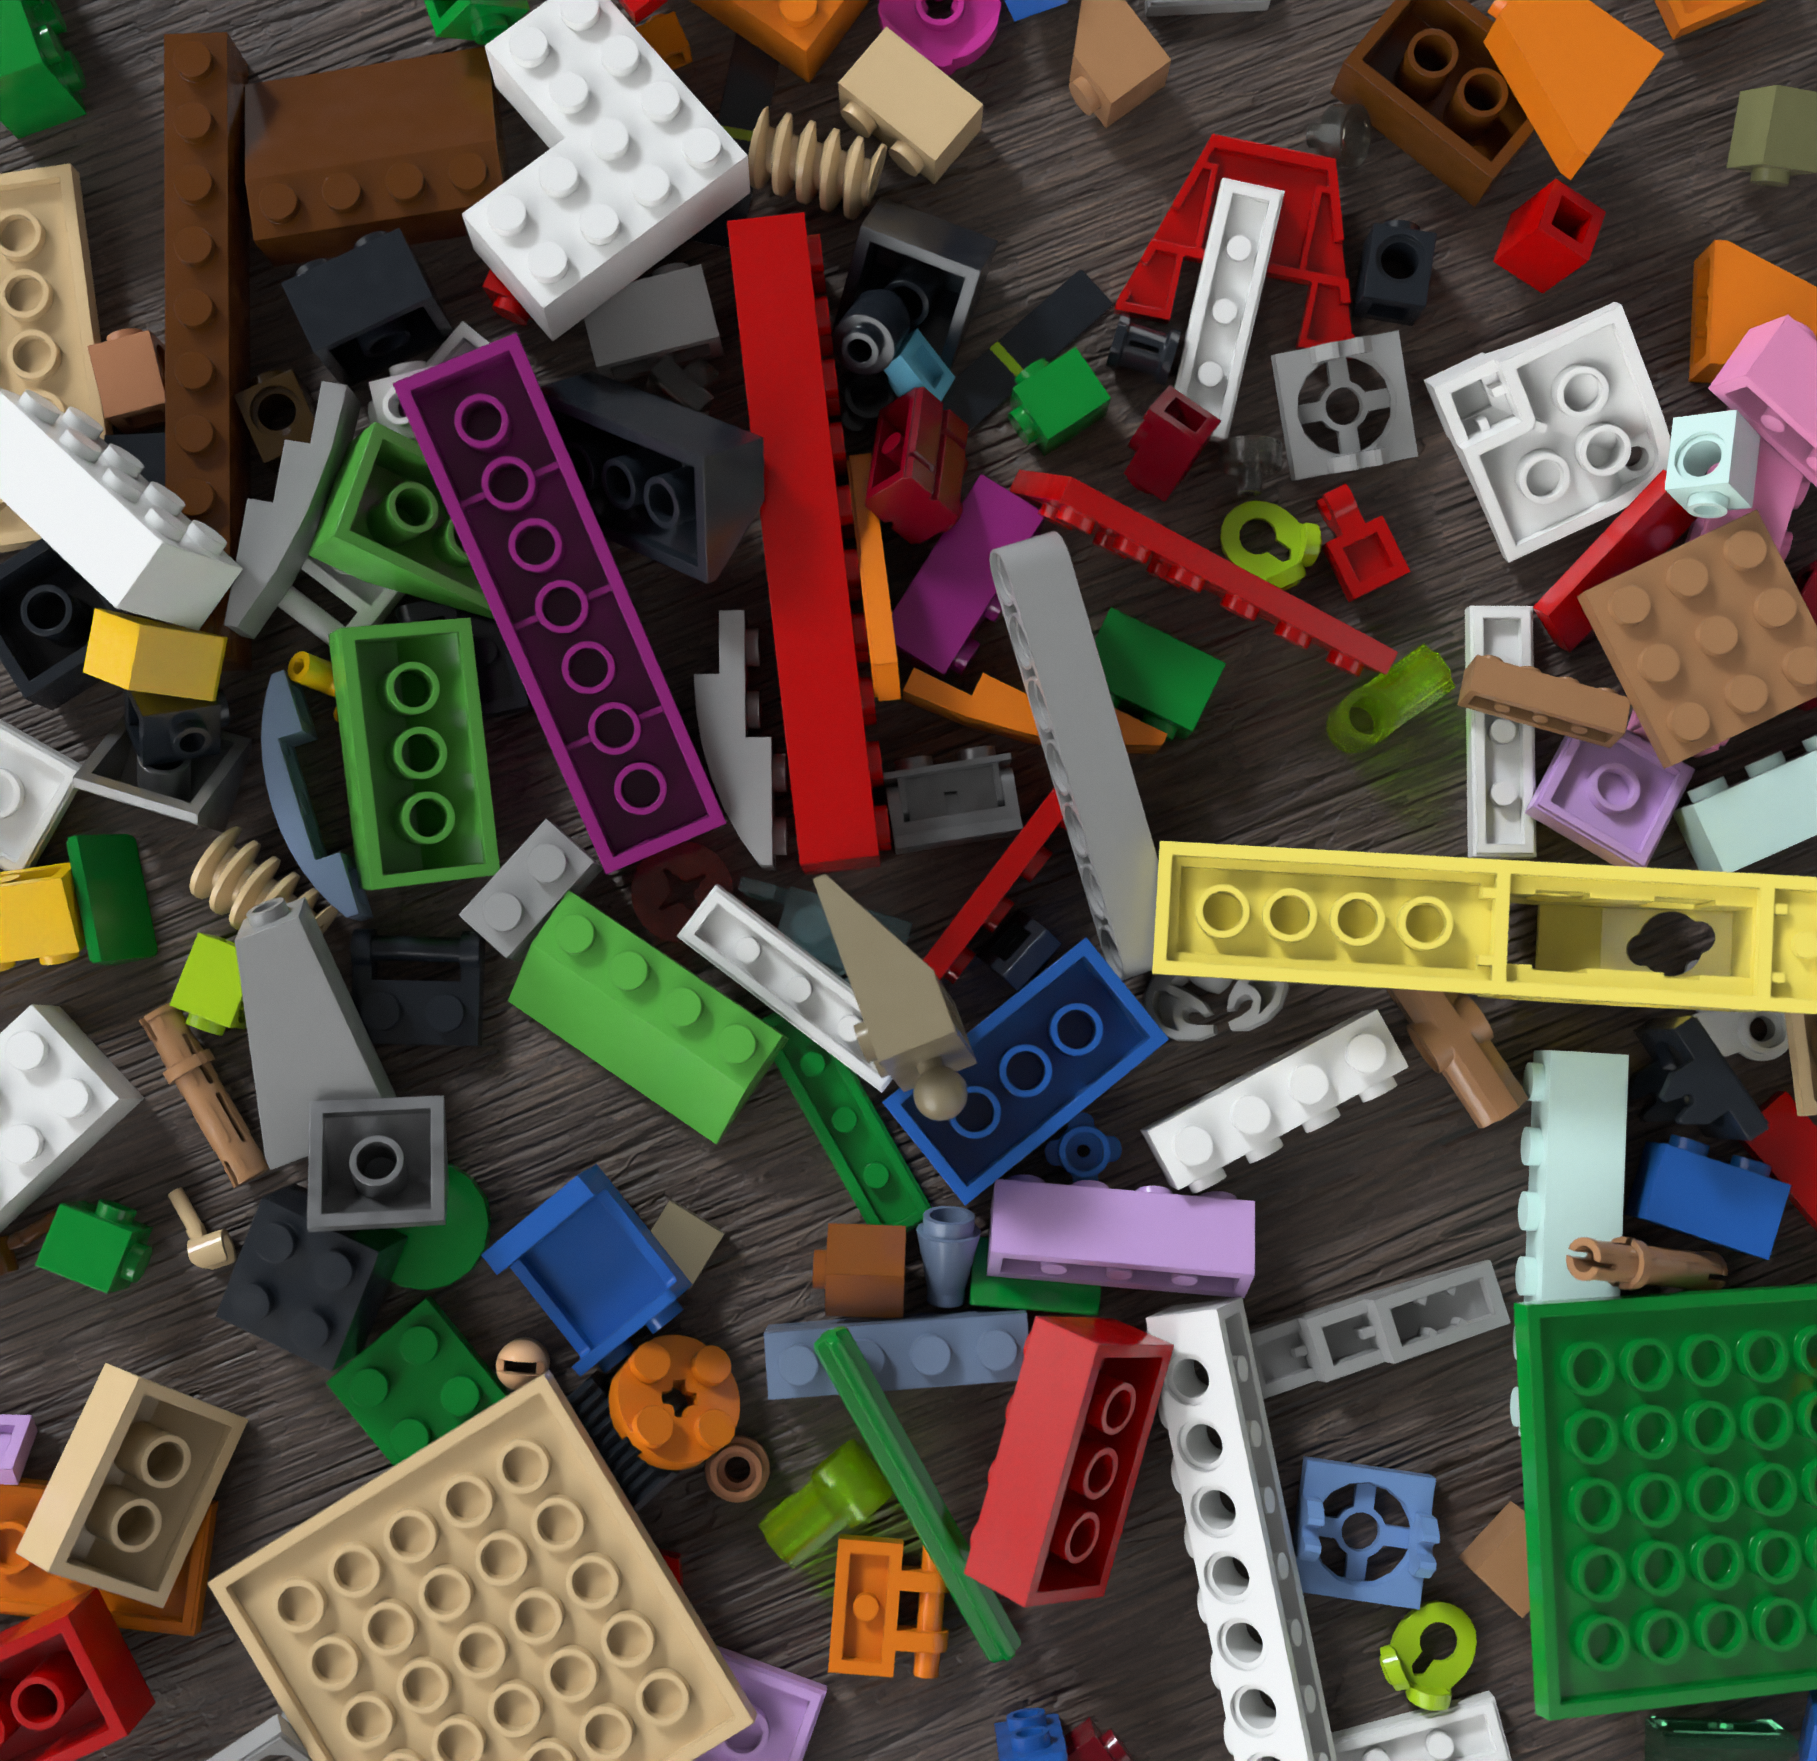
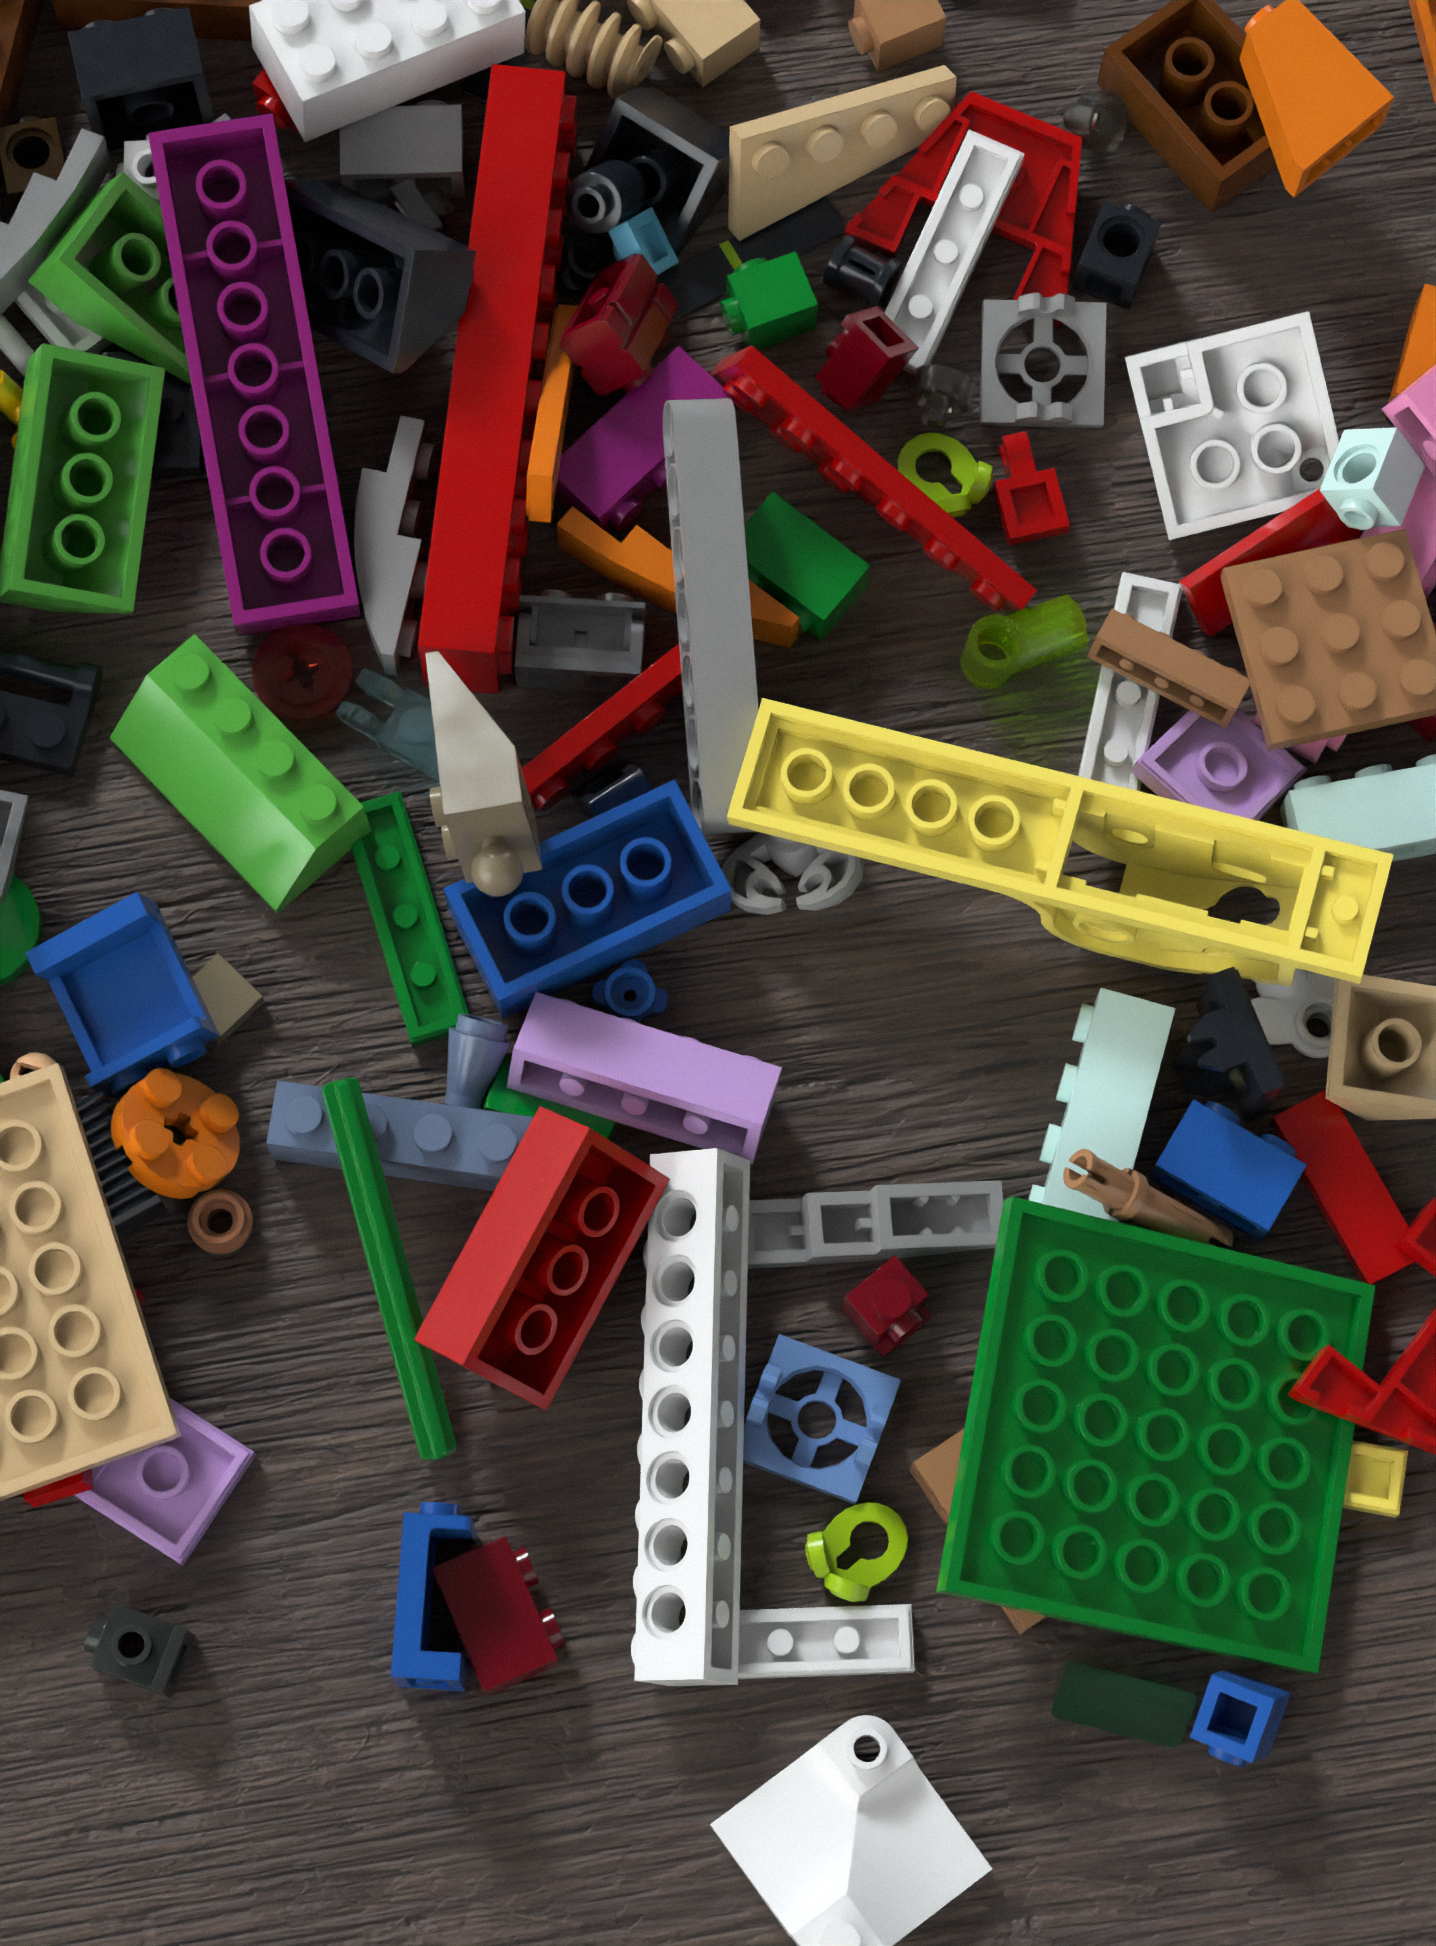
camera: 10 degrees right, 10 degrees down
(528, 890) = (154, 627): light grey brick -> none
(780, 976) = (376, 764): white tile -> none
(840, 1493) = (314, 1262): clear neon green piece -> none
(862, 1270) = (388, 1051): dark orange brick -> none
(868, 1606) = (314, 1380): orange plate -> none
(1078, 223) = (824, 145): none -> tan wing
(1273, 1099) = (824, 982): white brick -> none
(1407, 1411) = (887, 1306): none -> dark red brick
(1457, 1042) = (1014, 969): medium nougat piece -> none
(1549, 236) = (1269, 249): red brick -> none

